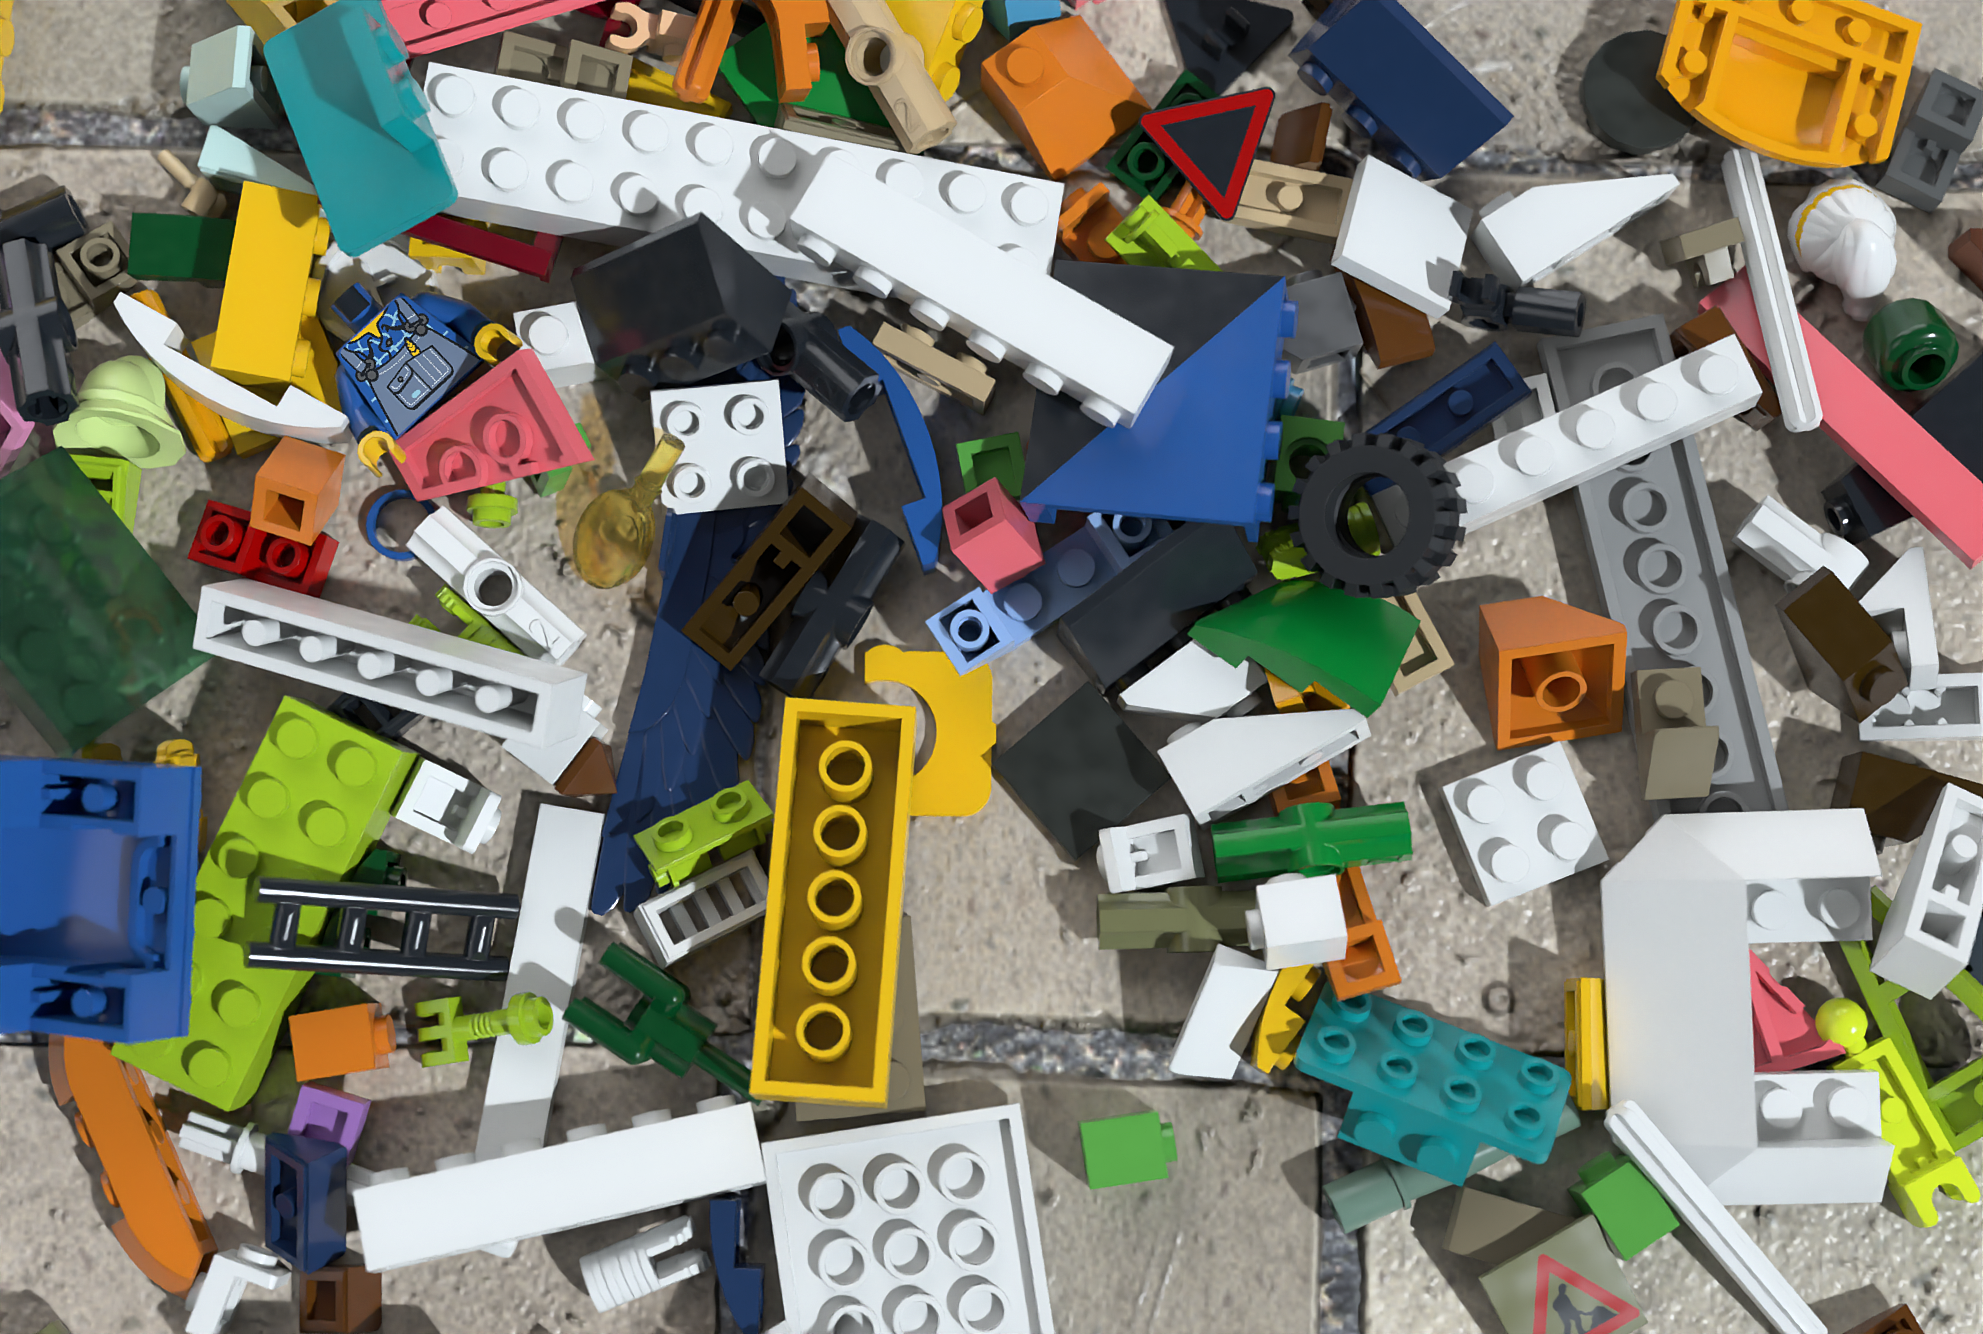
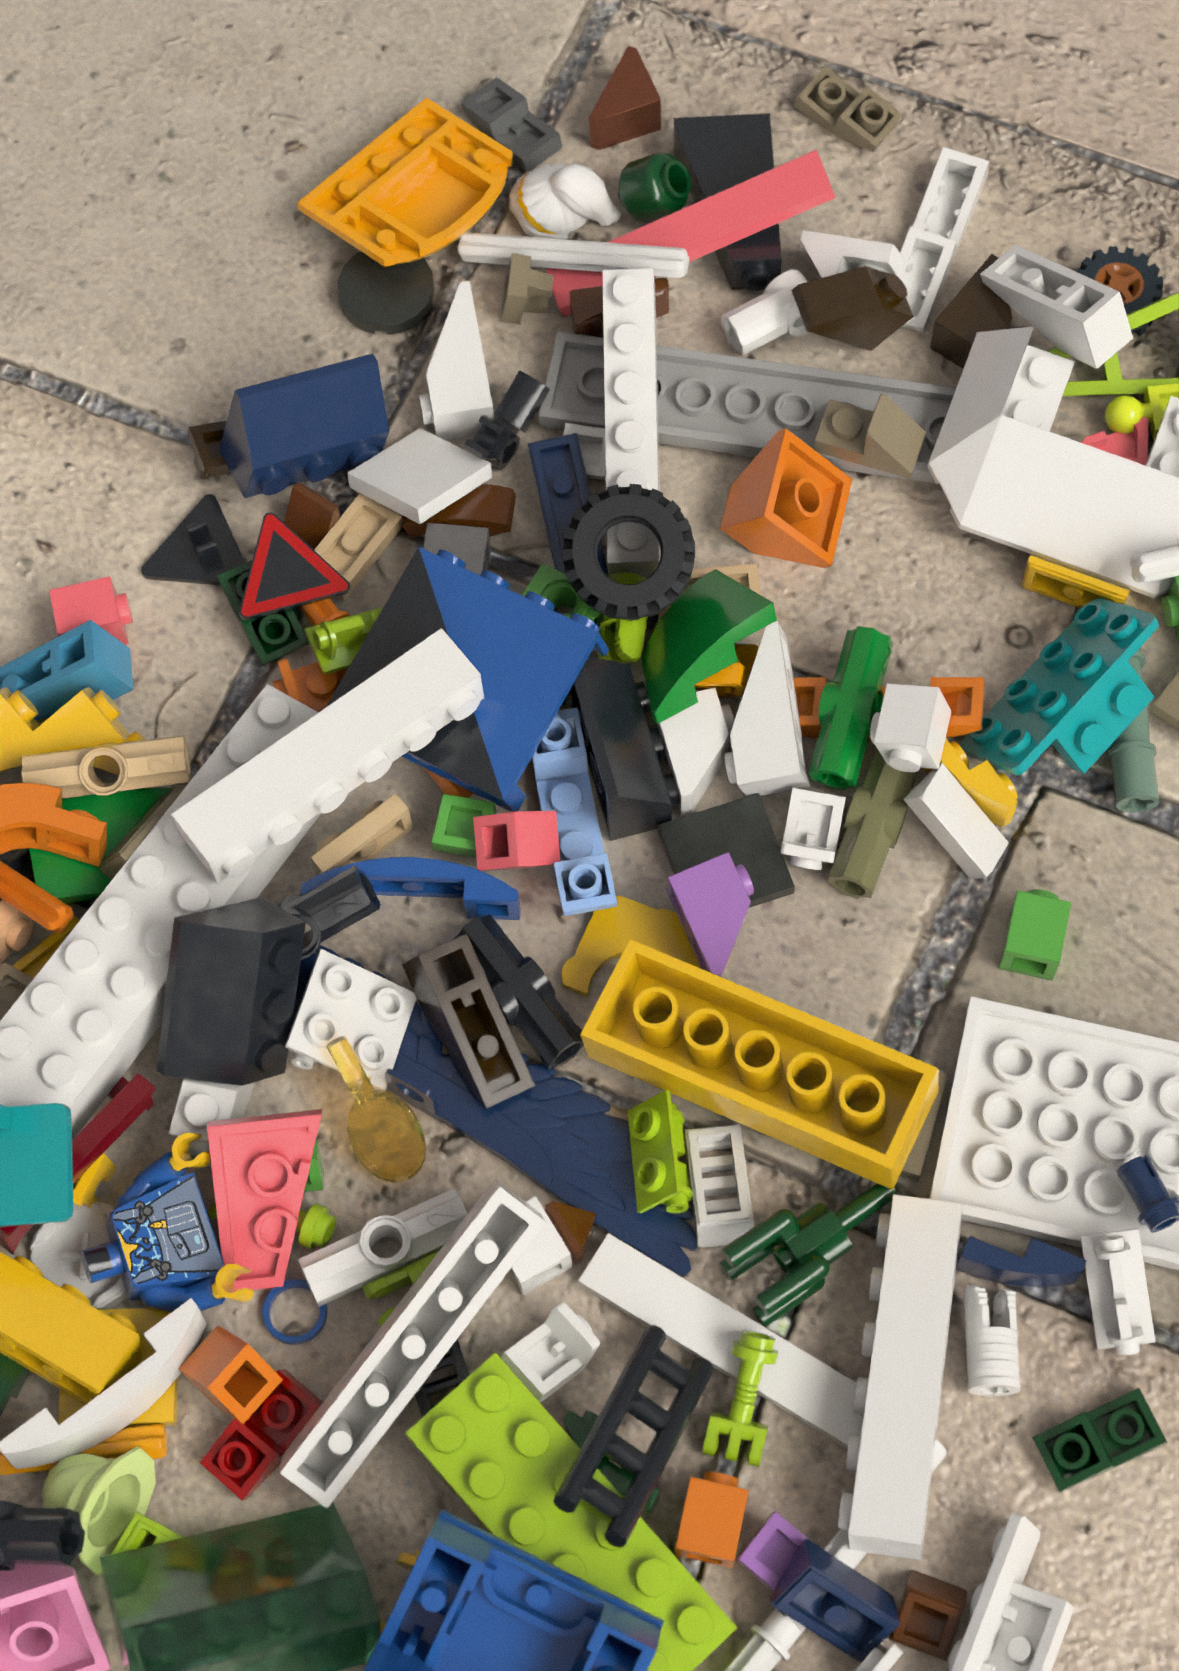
camera: 60 degrees left, 15 degrees down
(999, 782) = (711, 908): none -> medium lavender slope
(1061, 94) = (192, 674): orange slope -> none
(1523, 824) = (894, 568): white plate -> none

